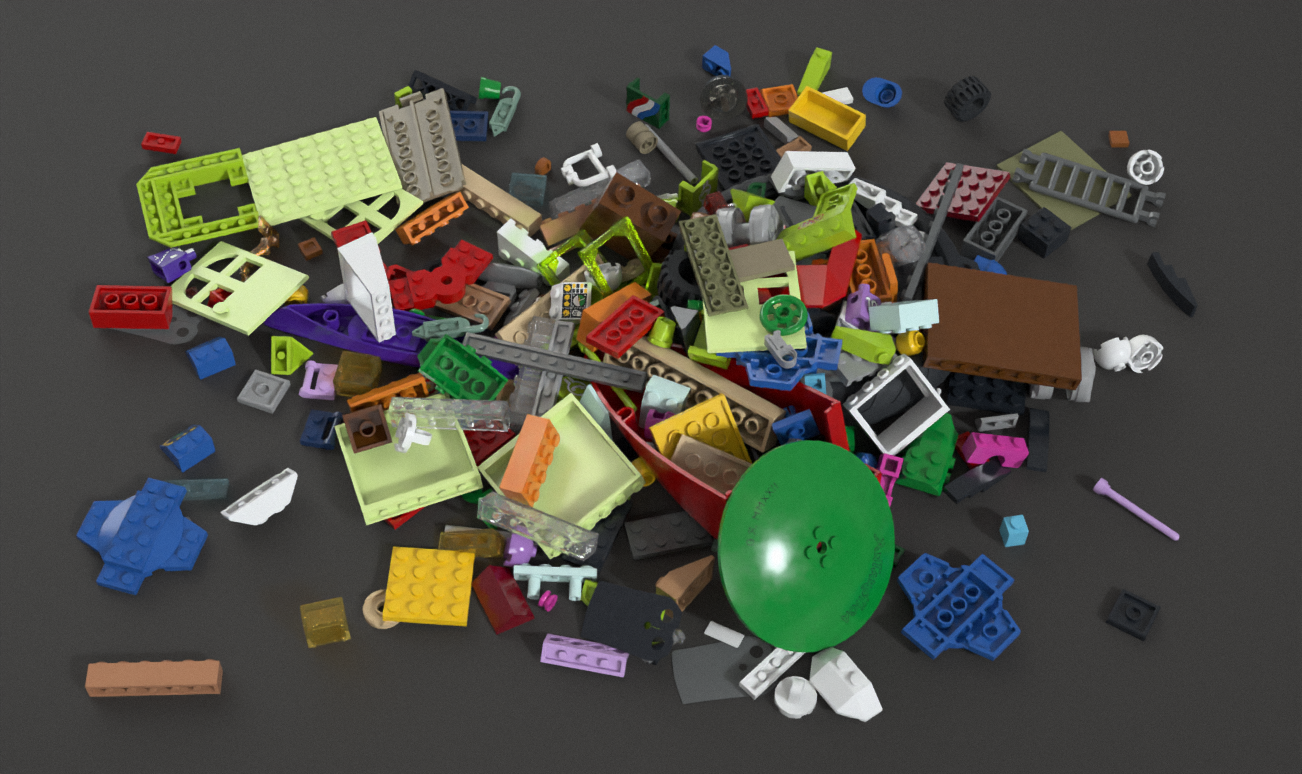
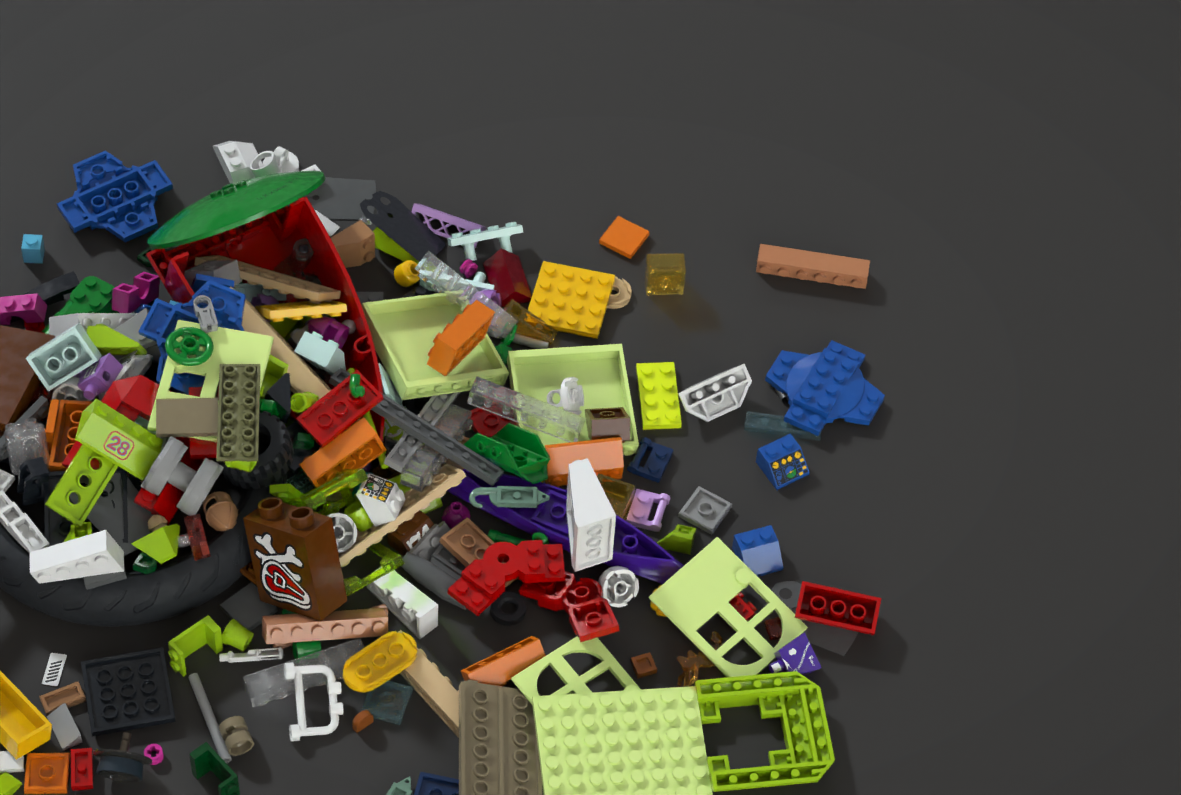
camera: 170 degrees left, 0 degrees up
(321, 499) = (658, 395): none -> neon yellow plate
(379, 680) = (624, 237): none -> orange tile
(535, 631) = (475, 235): none -> light aqua plate
(538, 197) = (379, 661): none -> yellow tile
(611, 572) = (406, 274): none -> yellow head
(615, 335) = (355, 388): none -> green arm
(805, 662) = (271, 168): none -> white helmet

